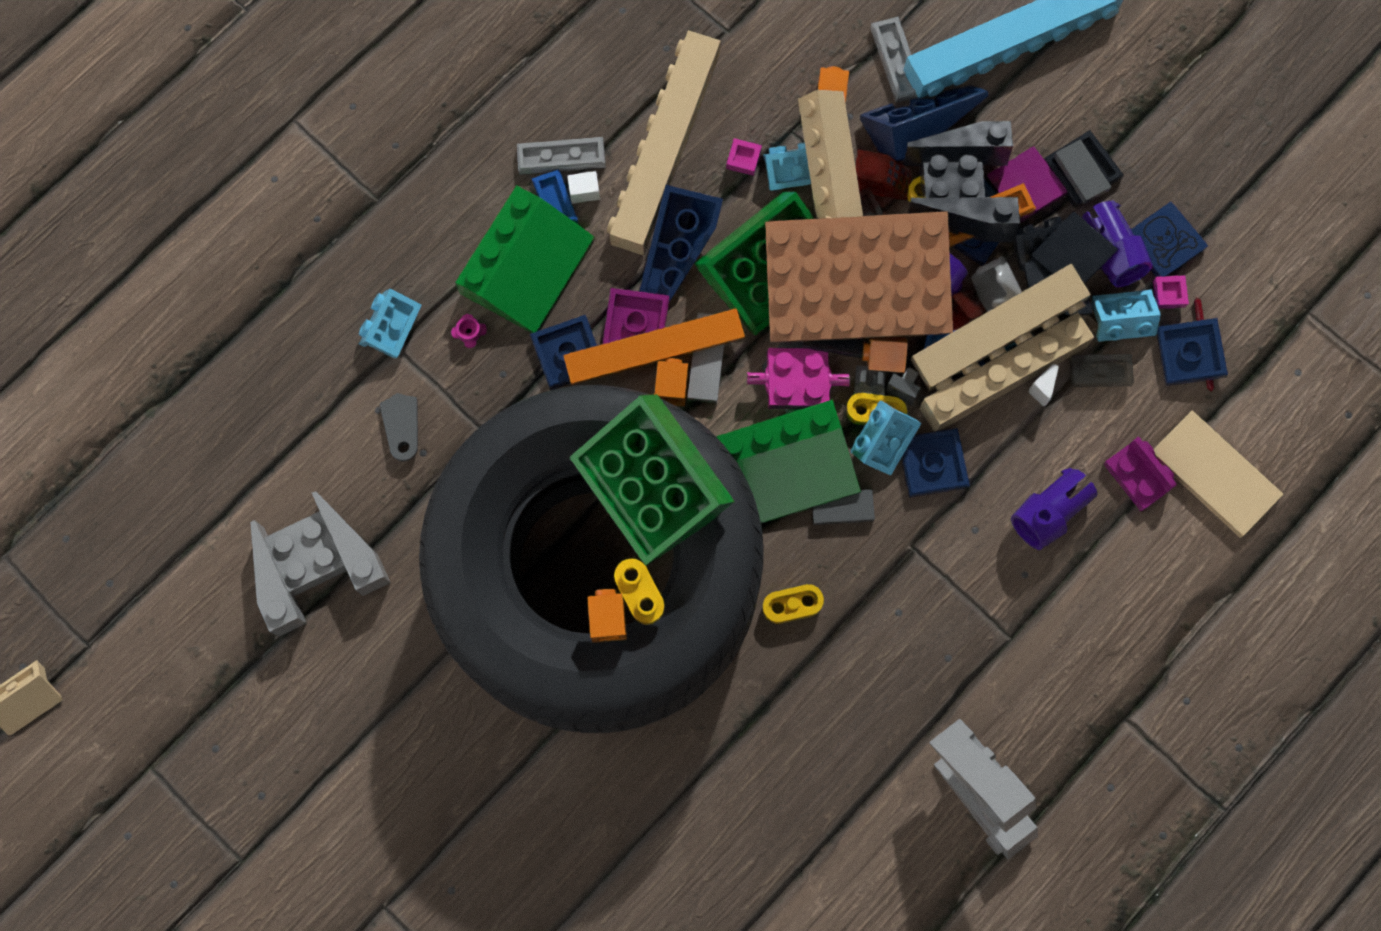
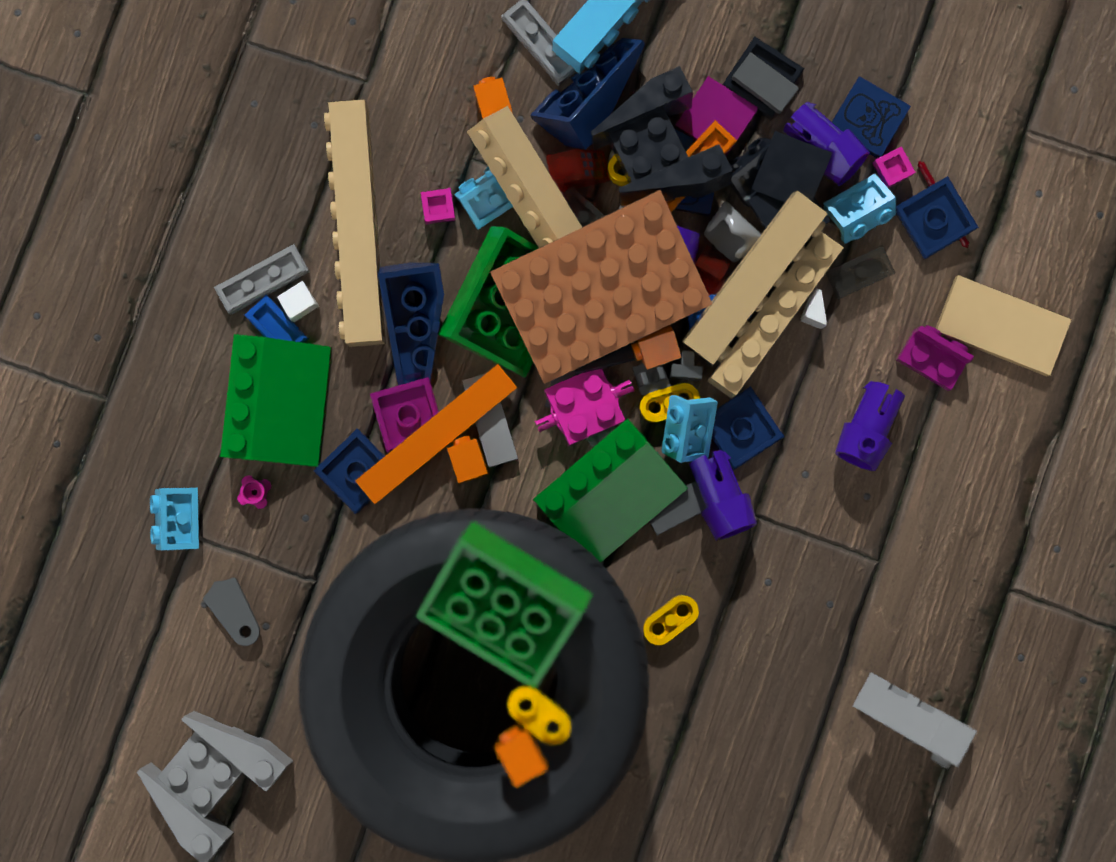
camera: 25 degrees left, 10 degrees up
(889, 522) = (727, 508): none -> dark purple piece

